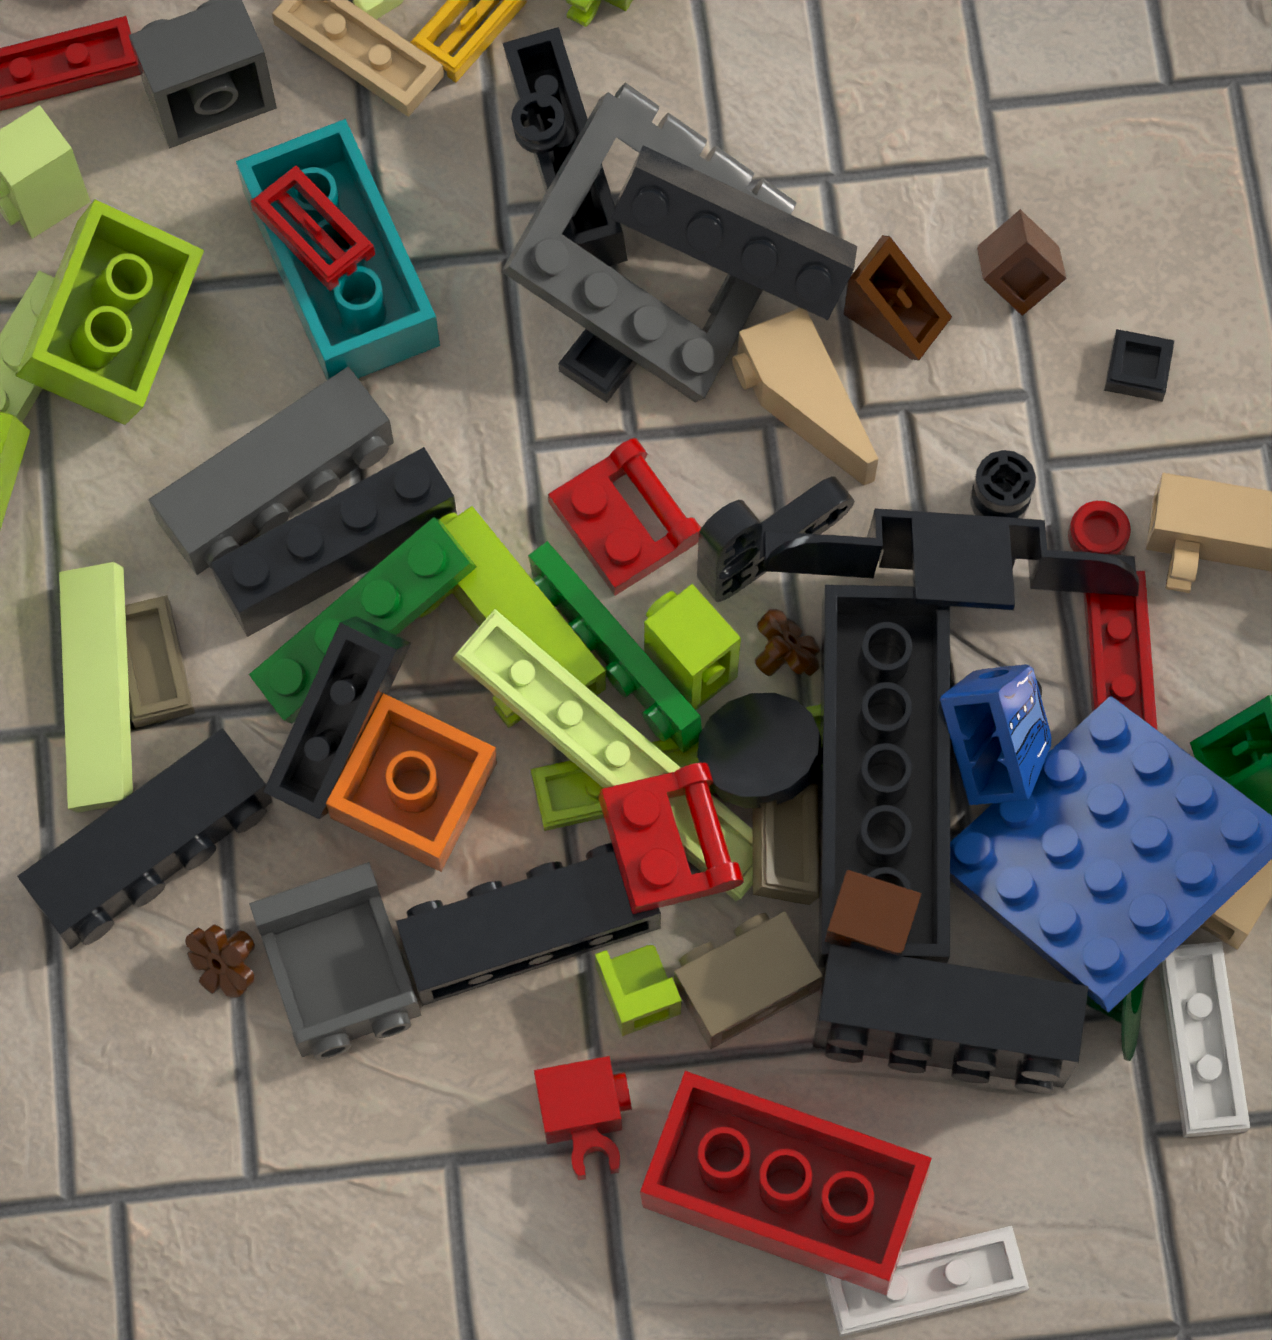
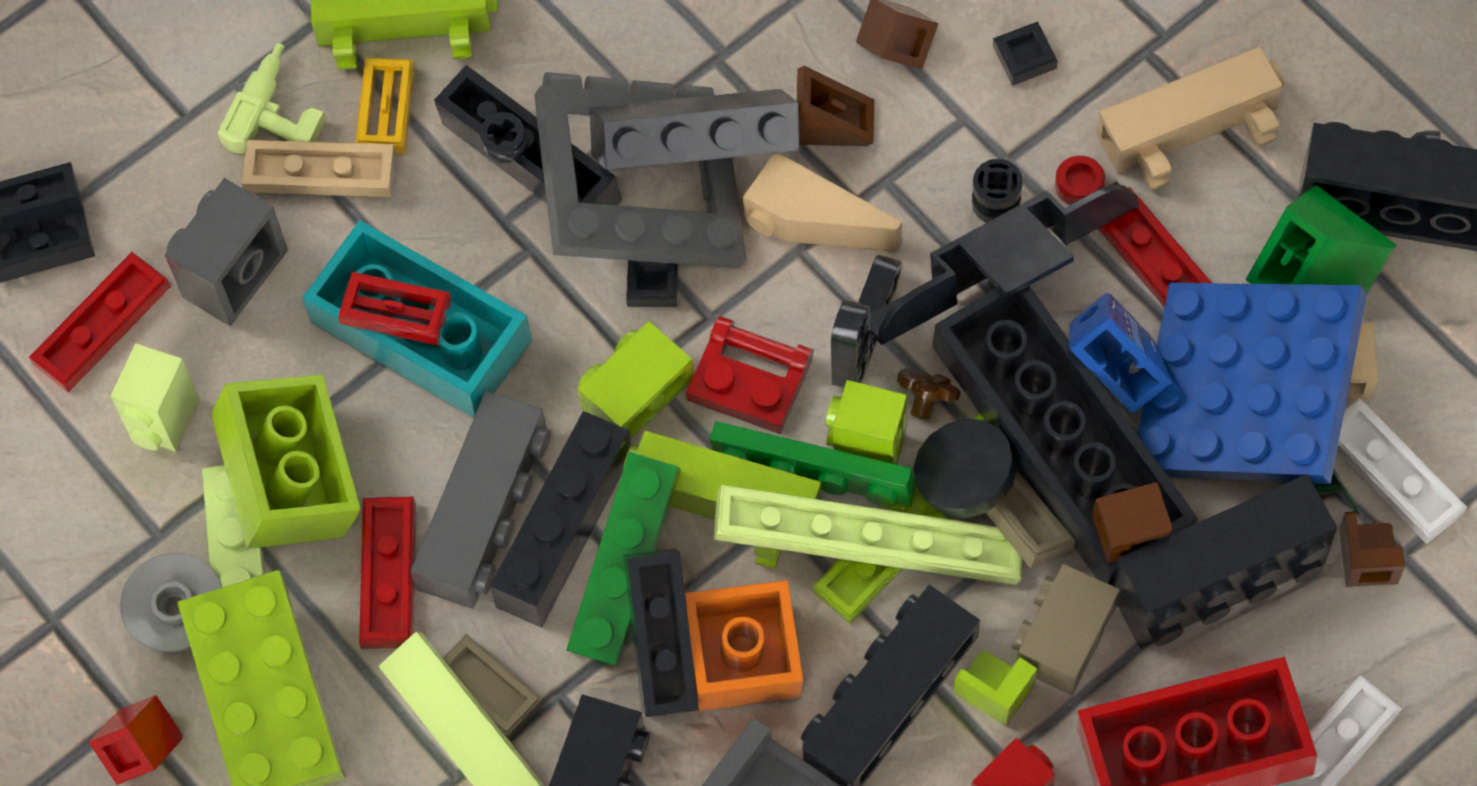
camera: 30 degrees left, 5 degrees down
(120, 507) = (385, 572): none -> red tile
(504, 451) = (636, 379): none -> lime brick
(650, 843) = (941, 577): red plate -> none
(1114, 1107) = (1369, 553): none -> reddish brown panel

